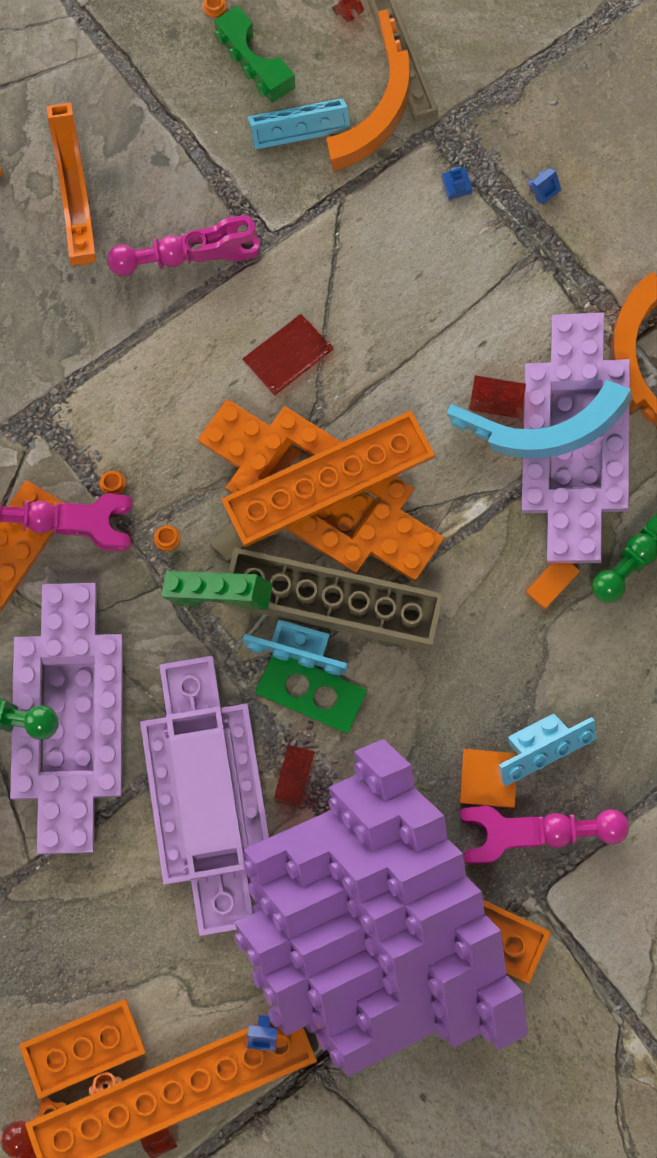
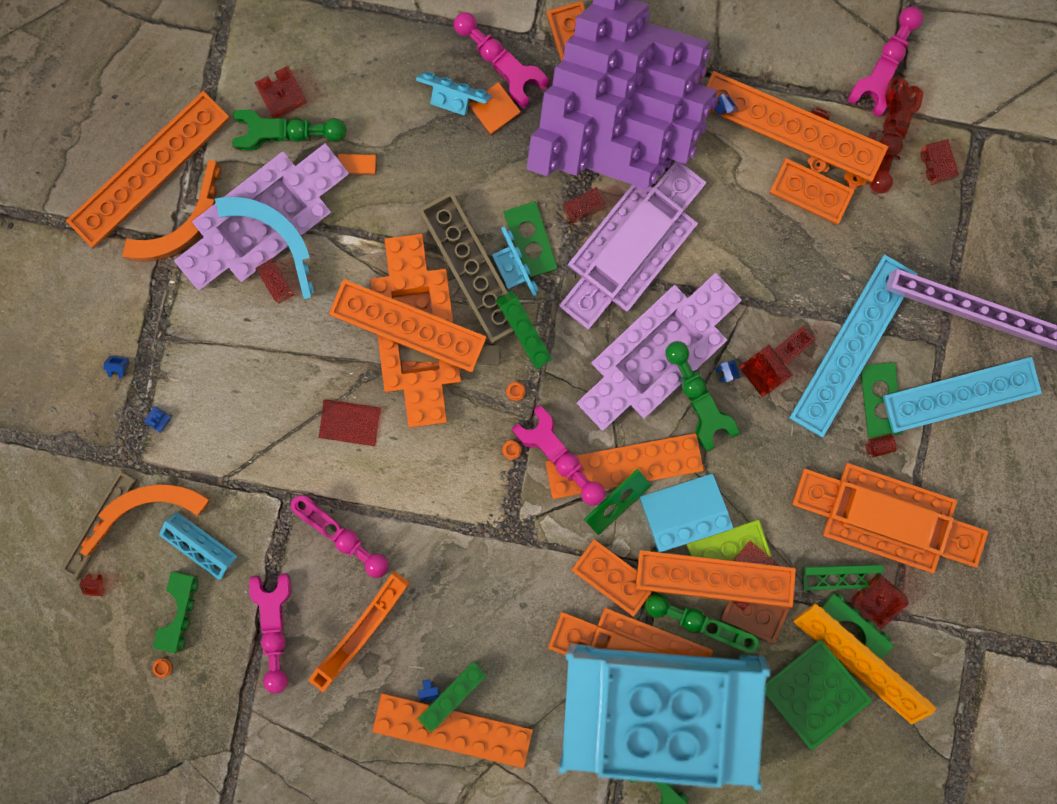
camera: 130 degrees left, 10 degrees up
(160, 125) = (272, 626): none -> dark pink piece

